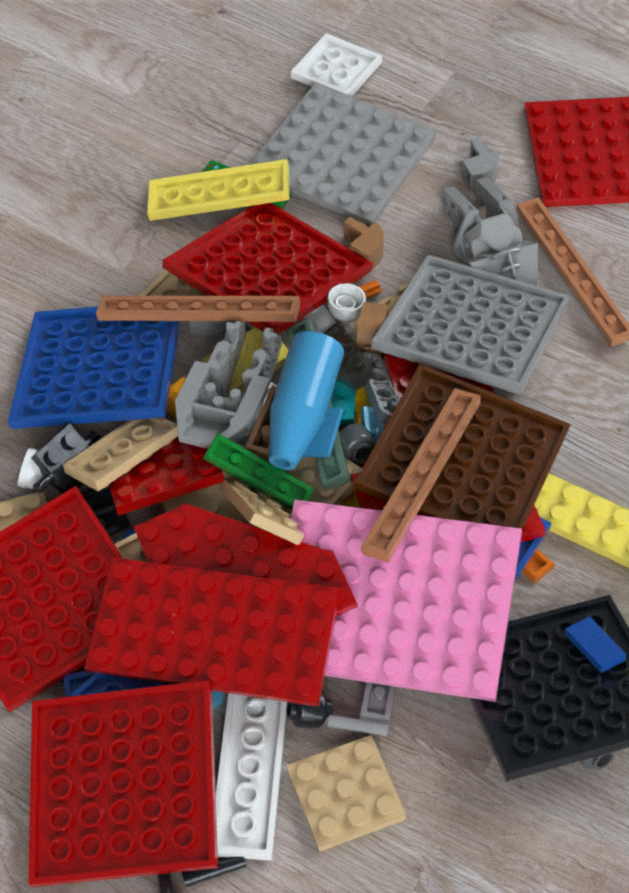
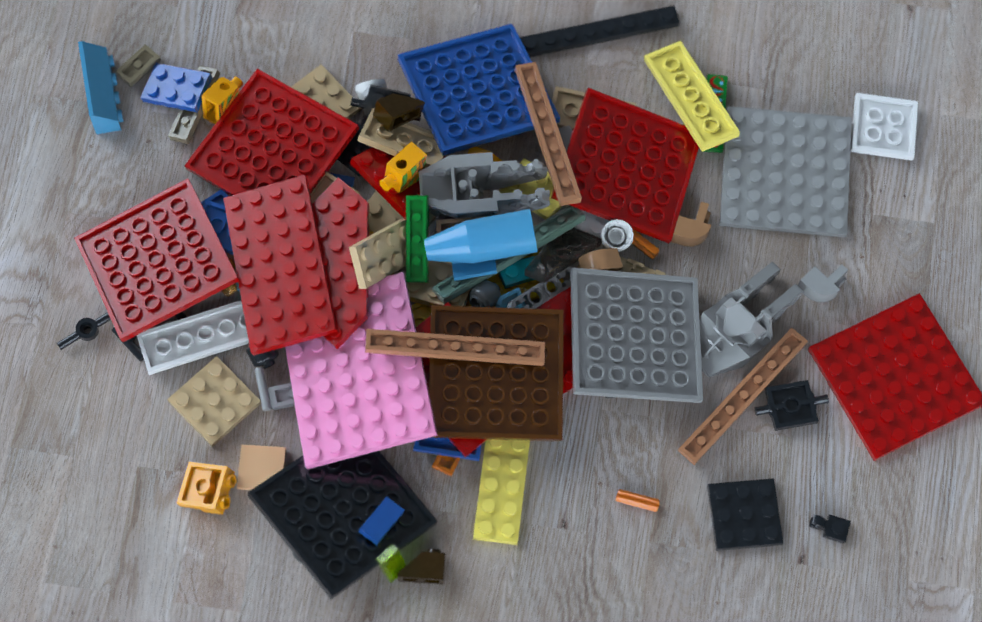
camera: 60 degrees right, 15 degrees up
(82, 439) = (397, 110): none -> dark brown slope
(93, 242) = (601, 31): none -> black plate
(169, 458) = (404, 168): none -> light orange torso
(460, 768) = (259, 464): none -> light nougat tile
(464, 840) = (207, 487): none -> light orange plate
(601, 235) = (791, 405): none -> black plate

